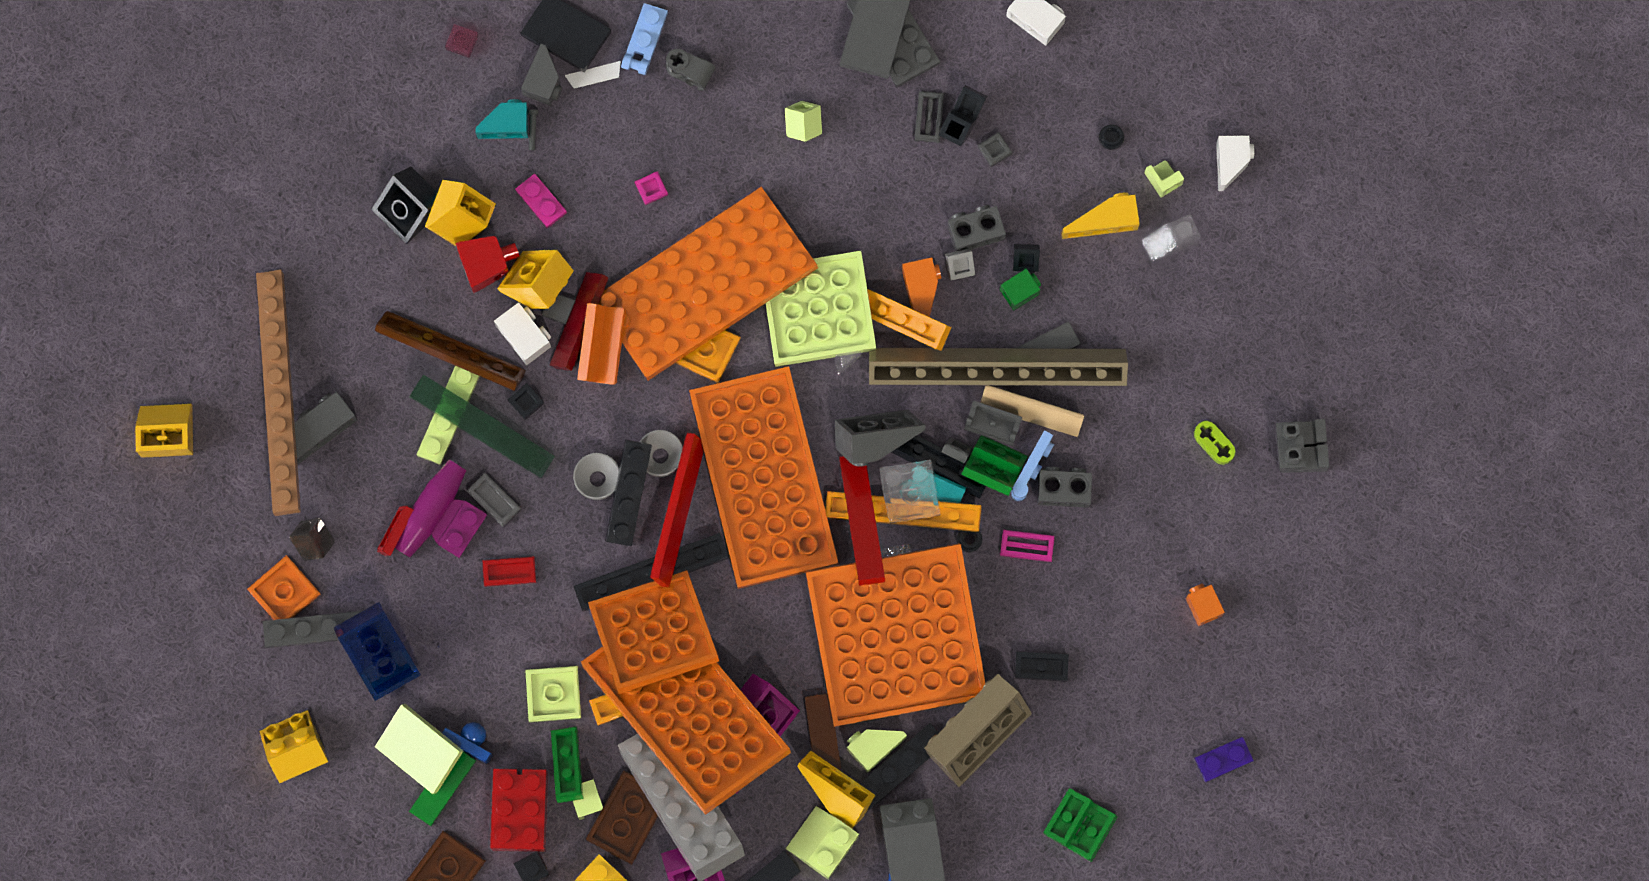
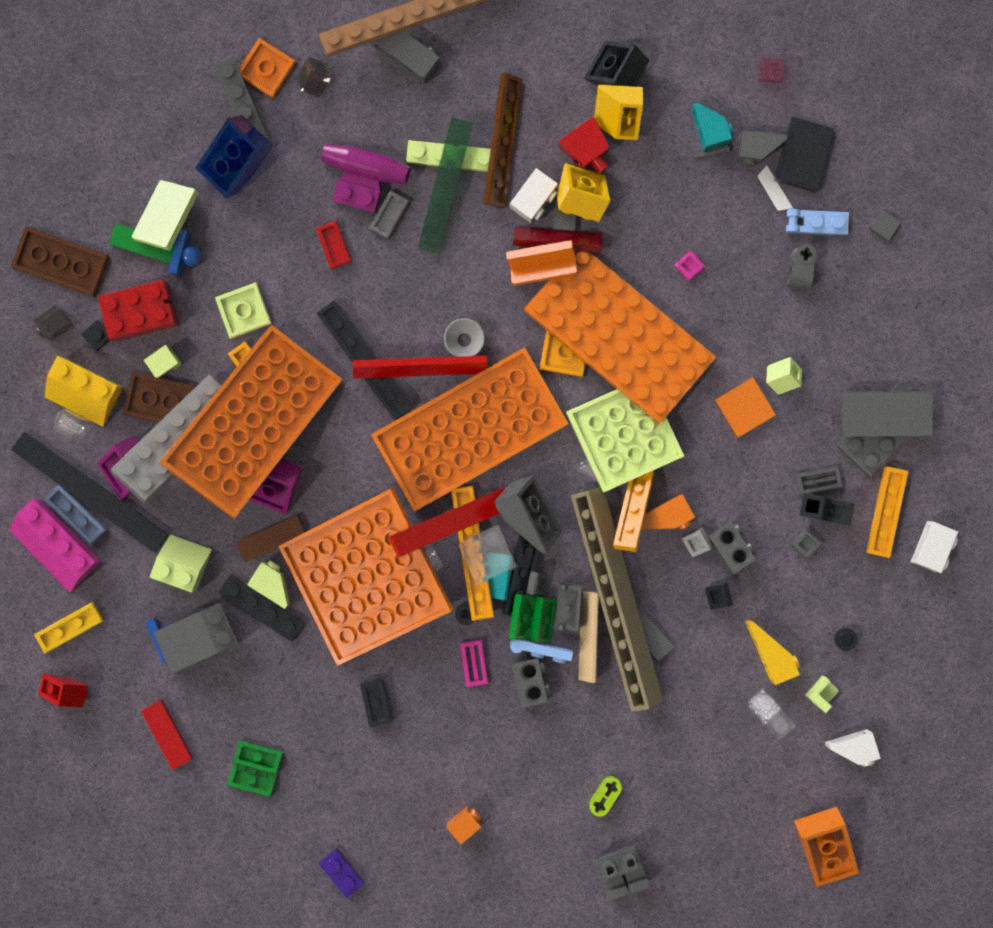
camera: 75 degrees right, 10 degrees up
(293, 746) = (140, 114): yellow slope -> none
(395, 530) = (339, 141): red tile -> none
(525, 401) = (477, 215): black plate -> none
(540, 201) = (652, 177): dark pink plate -> none
(567, 764) = (185, 338): green tile -> none
(596, 463) = (426, 281): light grey piece -> none
(628, 492) = (423, 322): black plate -> none
(653, 632) = (309, 376): orange plate -> none
(826, 172) = (745, 407): none -> orange tile
(836, 790) = (224, 562): yellow slope -> none
(978, 729) = (306, 664): dark tan slope -> none
(984, 54) = (887, 512): none -> light orange plate
(1020, 289) = (690, 599): green brick -> none
(1332, 219) = (827, 846): none -> orange slope

